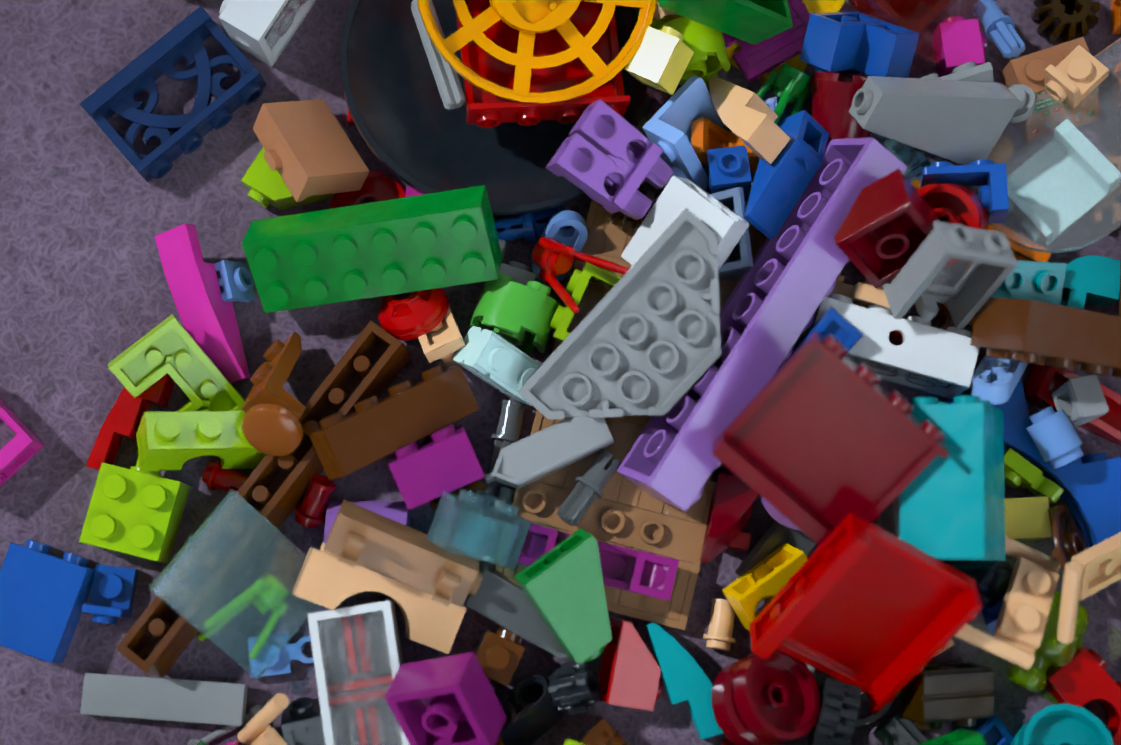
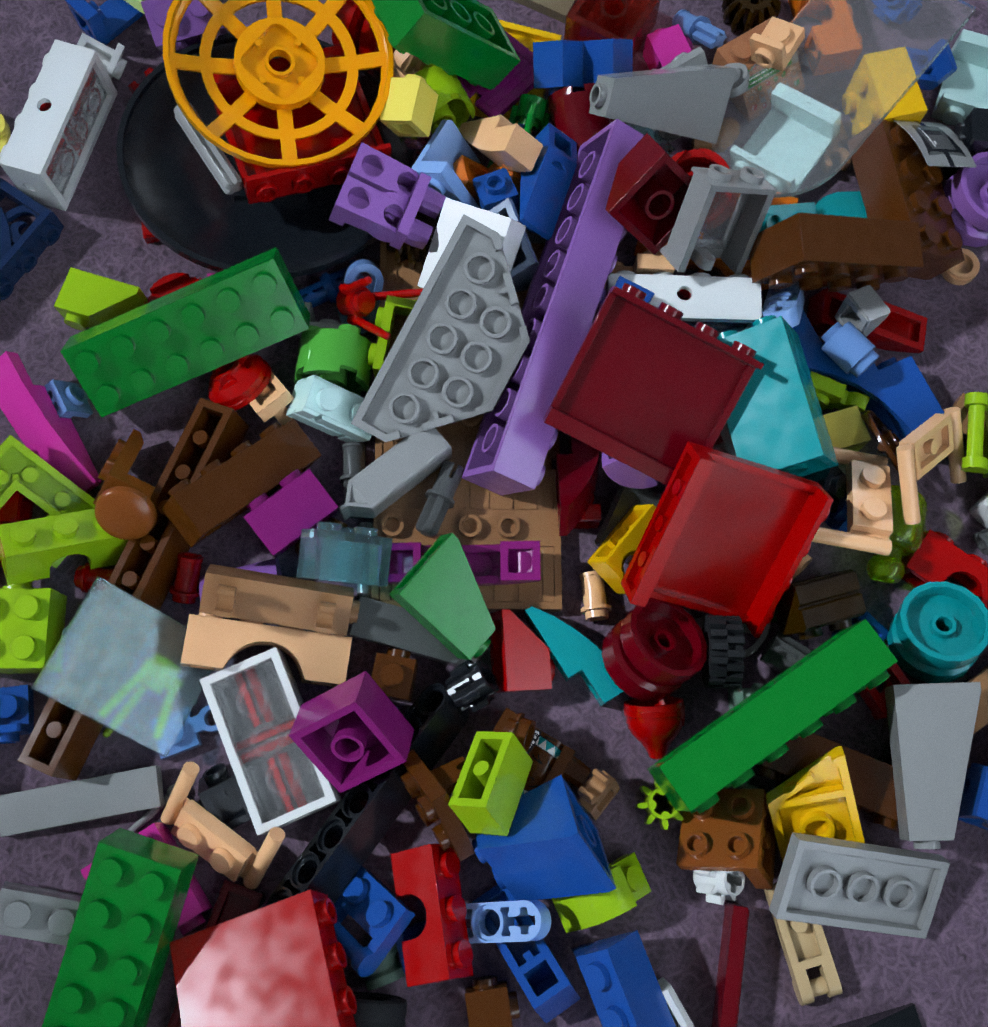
camera: 15 degrees left, 5 degrees down
(309, 148) = (110, 263): nougat container -> none
(982, 173) = (725, 141): blue bracket -> none

